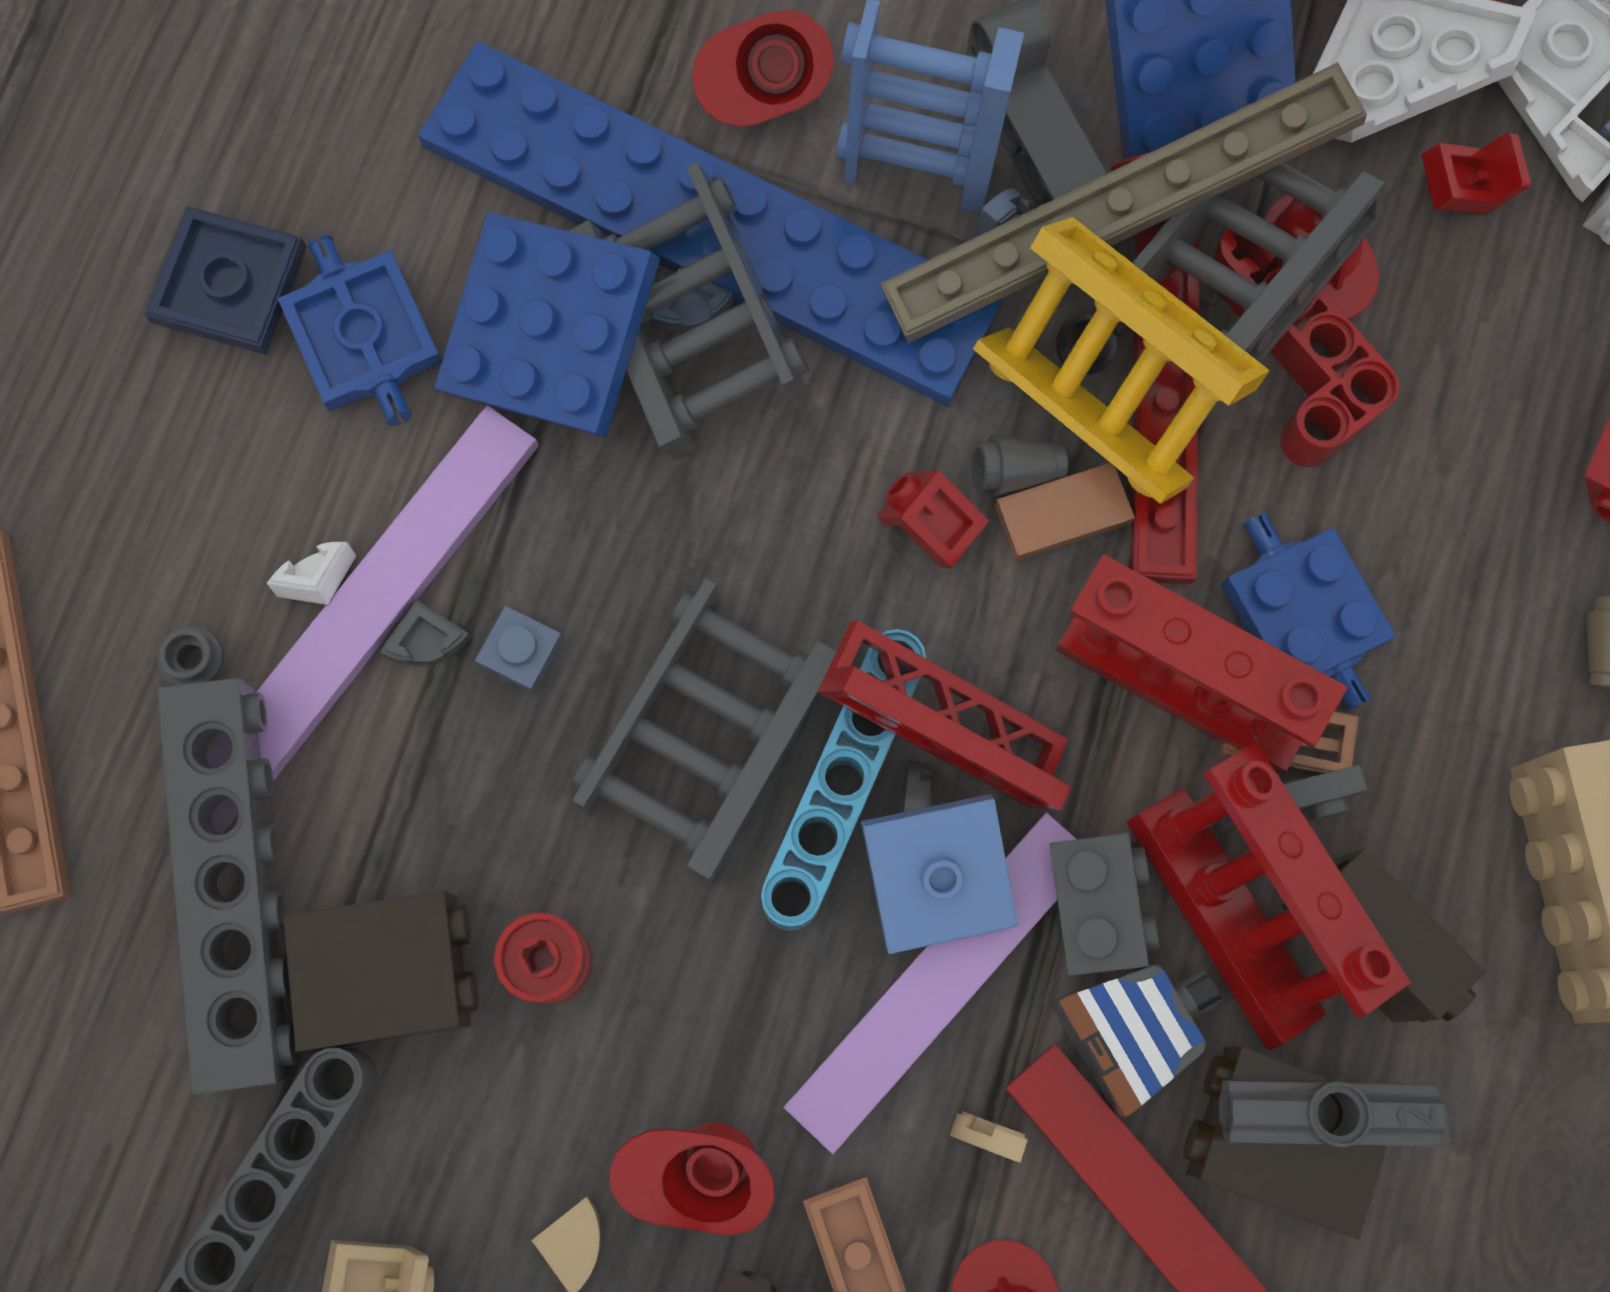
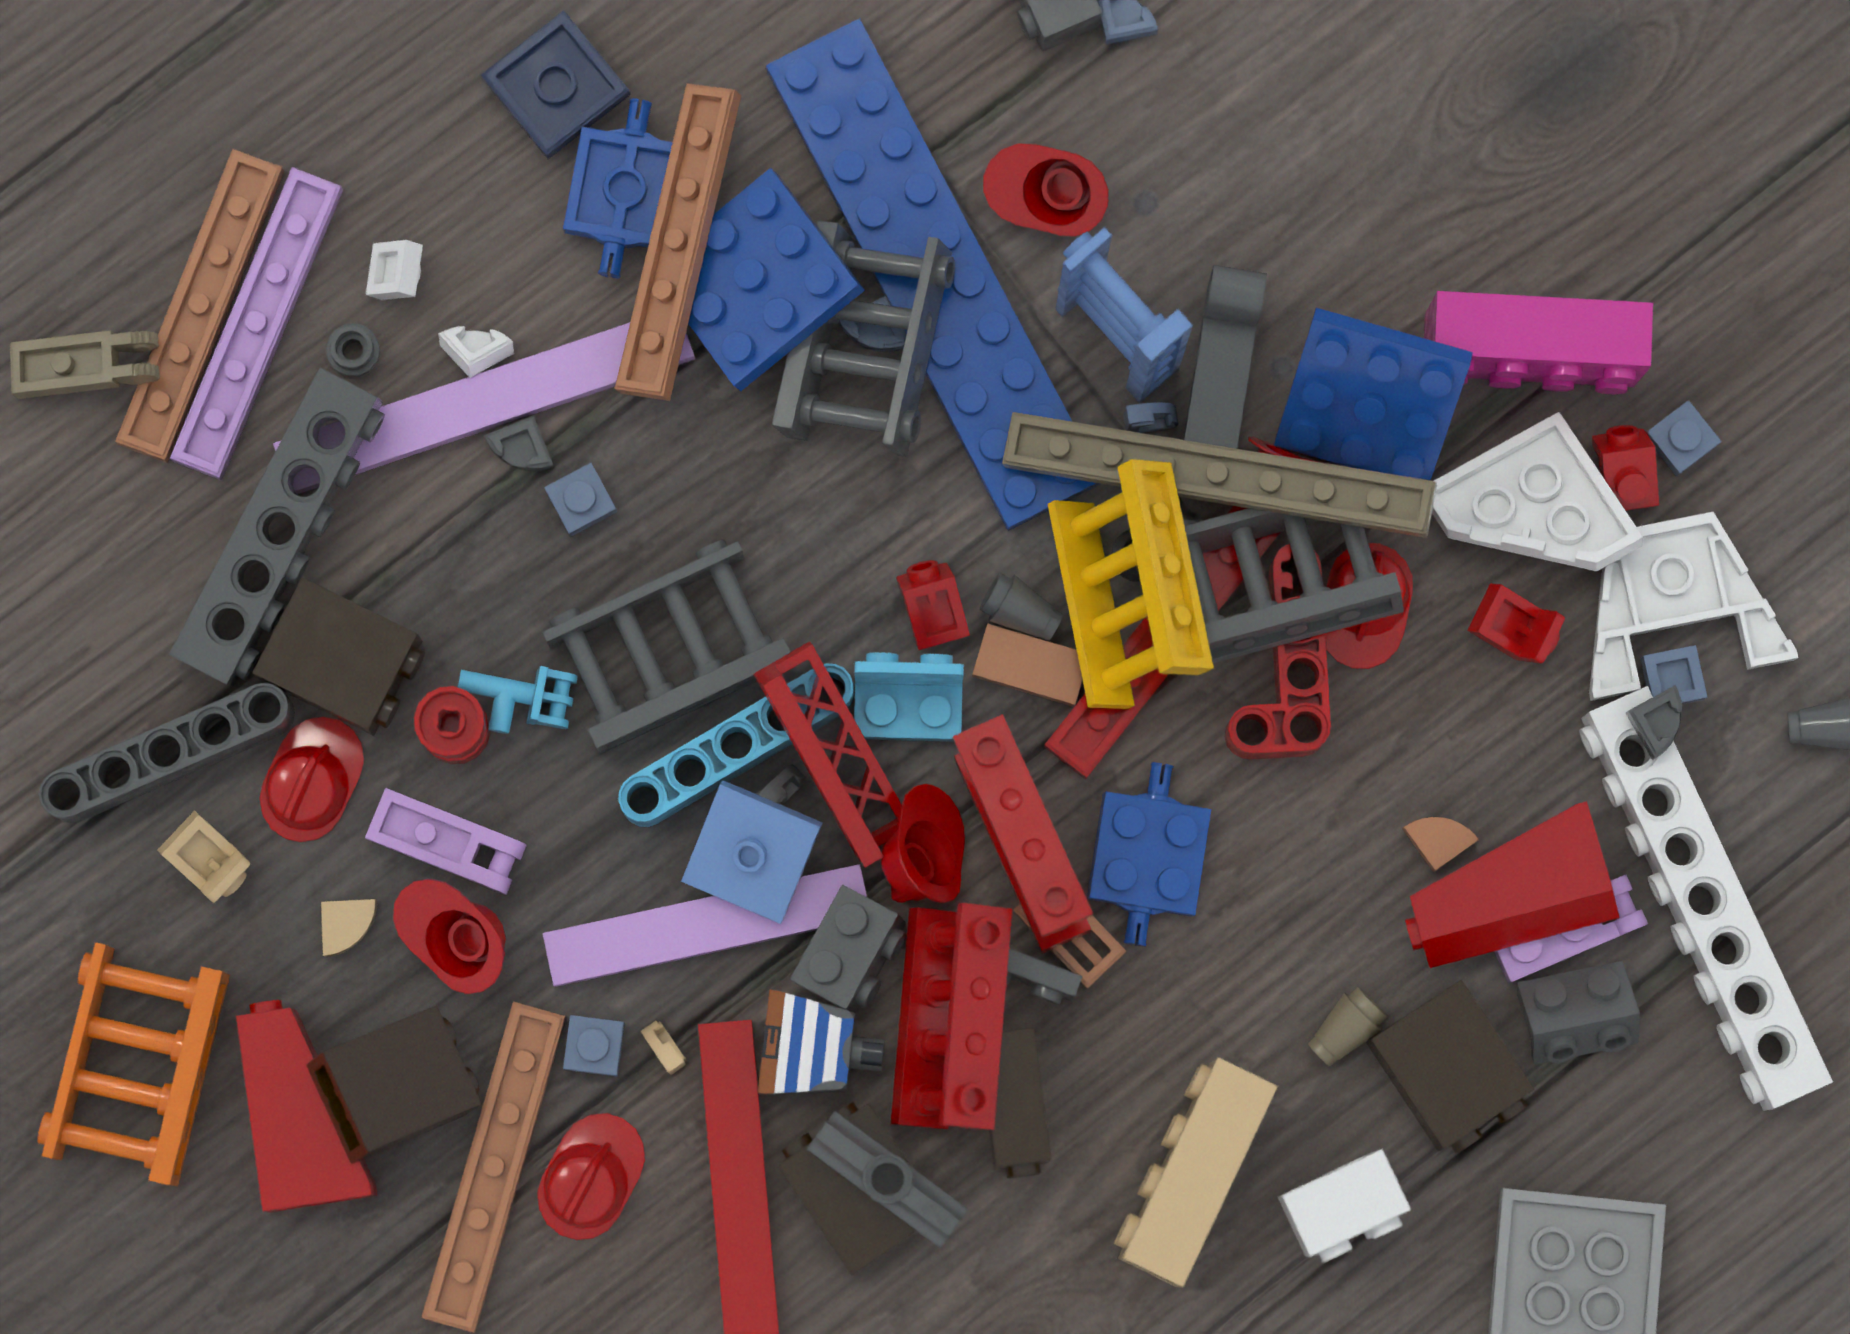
camera: 35 degrees right, 5 degrees up
(75, 701) = (256, 323): none -> lavender tile
(180, 551) = (394, 270): none -> white plate
(435, 1117) = (311, 779): none -> red piece
(446, 340) = (678, 242): none -> nougat tile
(579, 884) = (509, 691): none -> medium azure arm
(614, 1084) = (443, 840): none -> lavender plate
(916, 1186) = (594, 1045): none -> sand blue plate
(979, 615) = (908, 698): none -> medium azure bracket
(1101, 754) = (927, 848): none -> red piece
(1554, 415) = (1439, 839): none -> nougat tile

